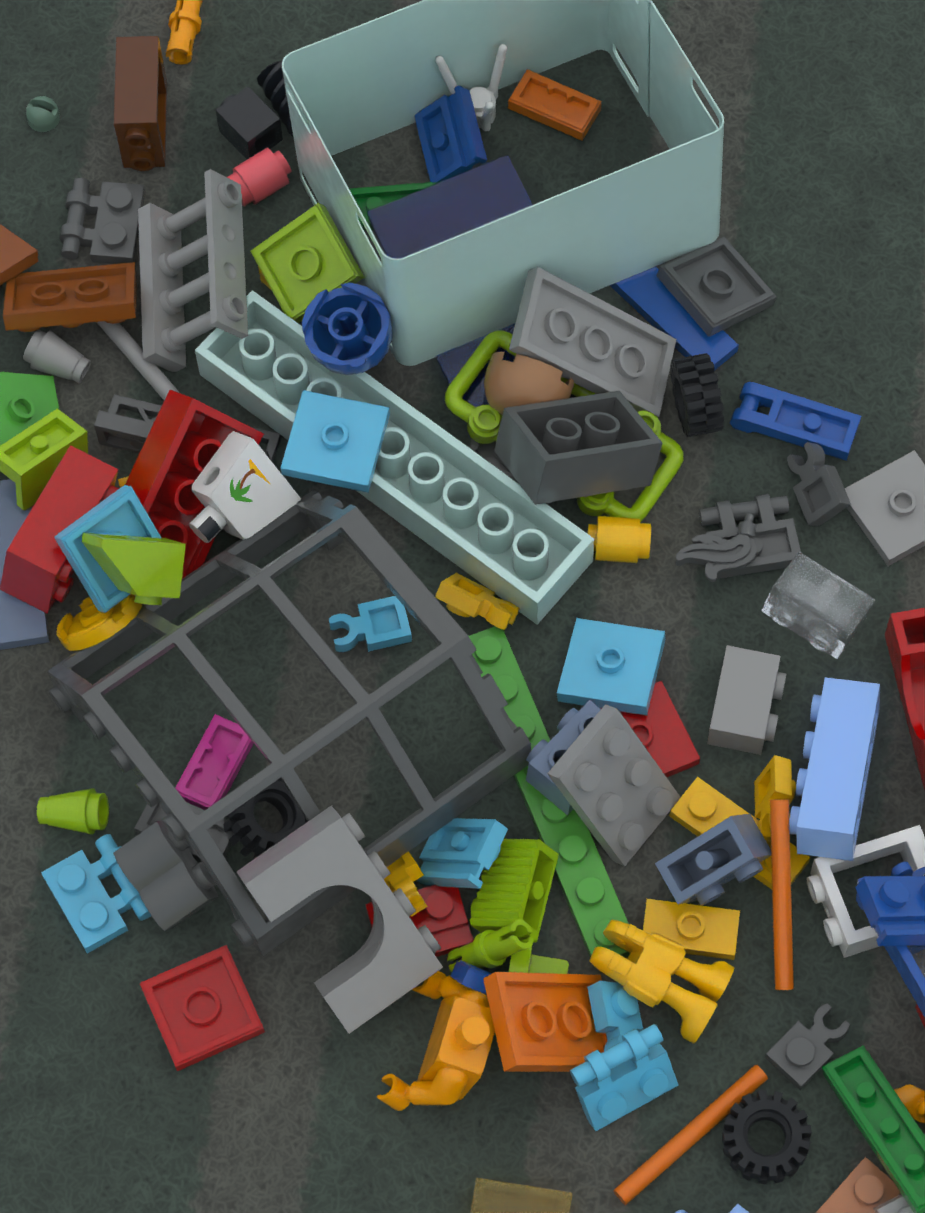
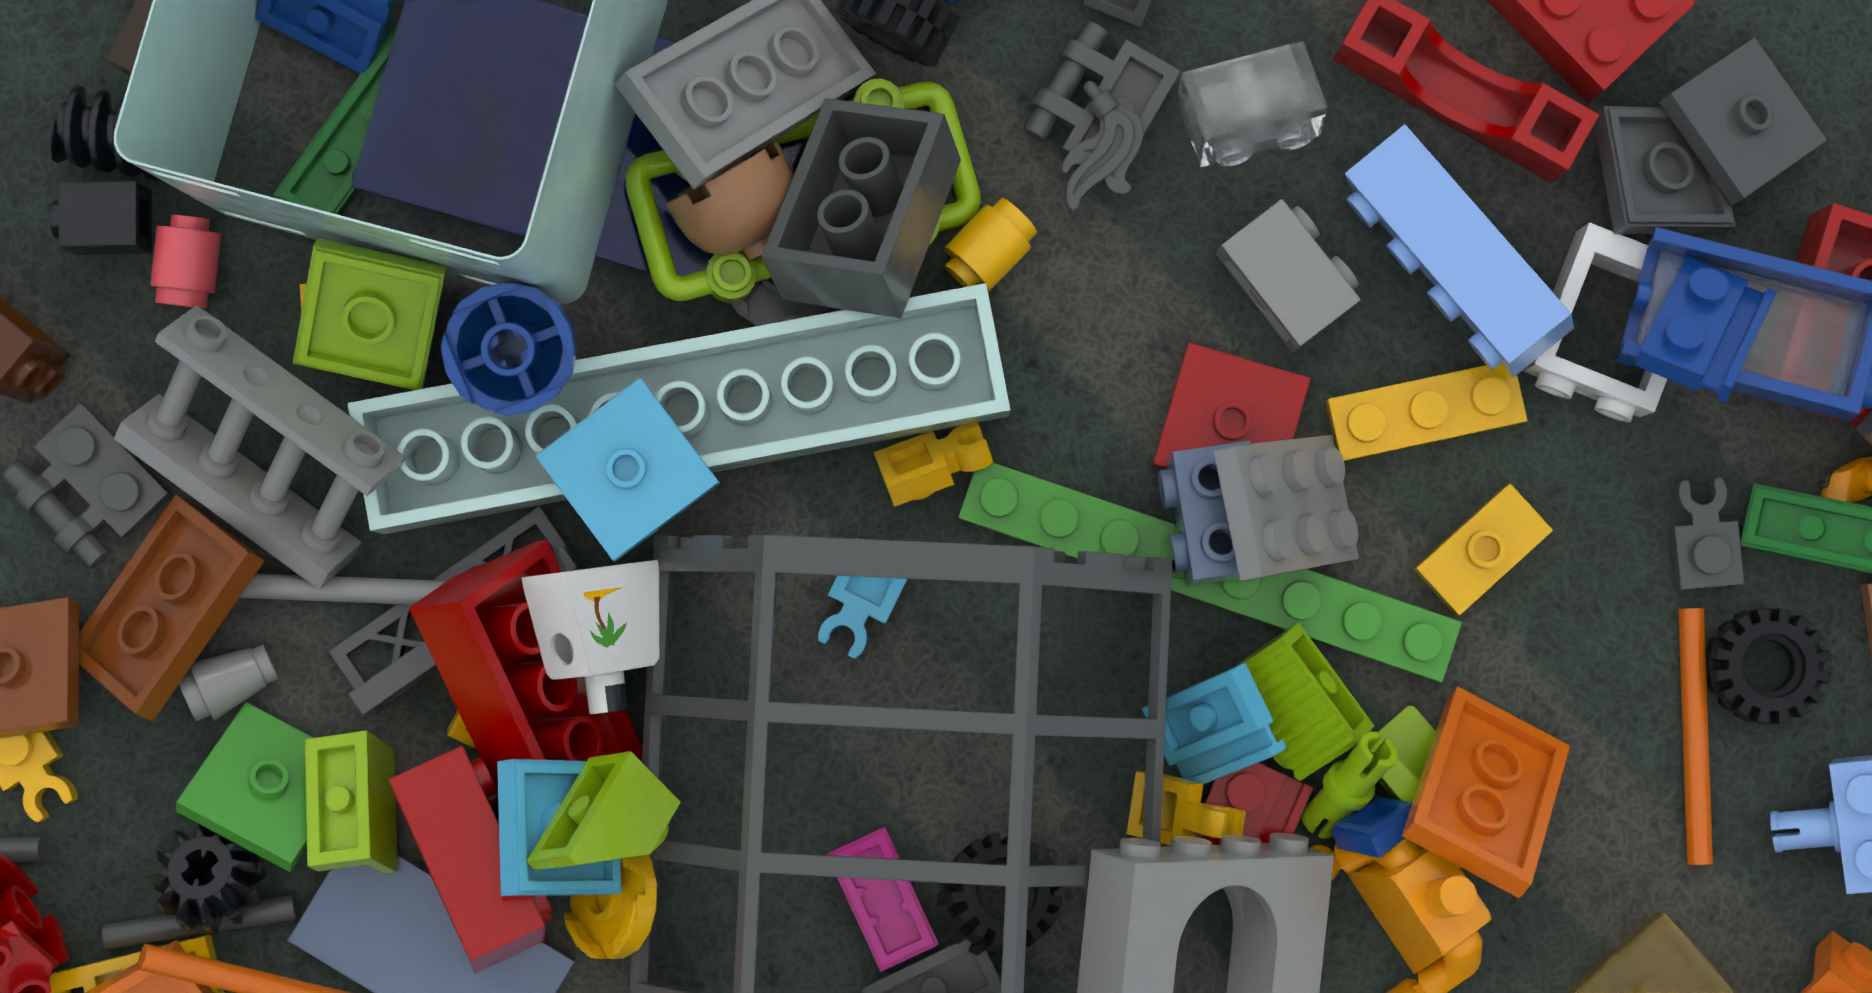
camera: 55 degrees left, 20 degrees up
(611, 666) = (1129, 382): medium azure plate -> none
(613, 1011) = (1519, 712): medium azure plate -> none
(623, 1077) = (1594, 781): medium azure plate -> none
(649, 971) = (1504, 631): yellow piece -> none
(713, 859) = (1451, 469): sand blue brick -> none
(772, 783) = (1422, 342): yellow plate -> none
(781, 894) = (1541, 430): orange bar -> none

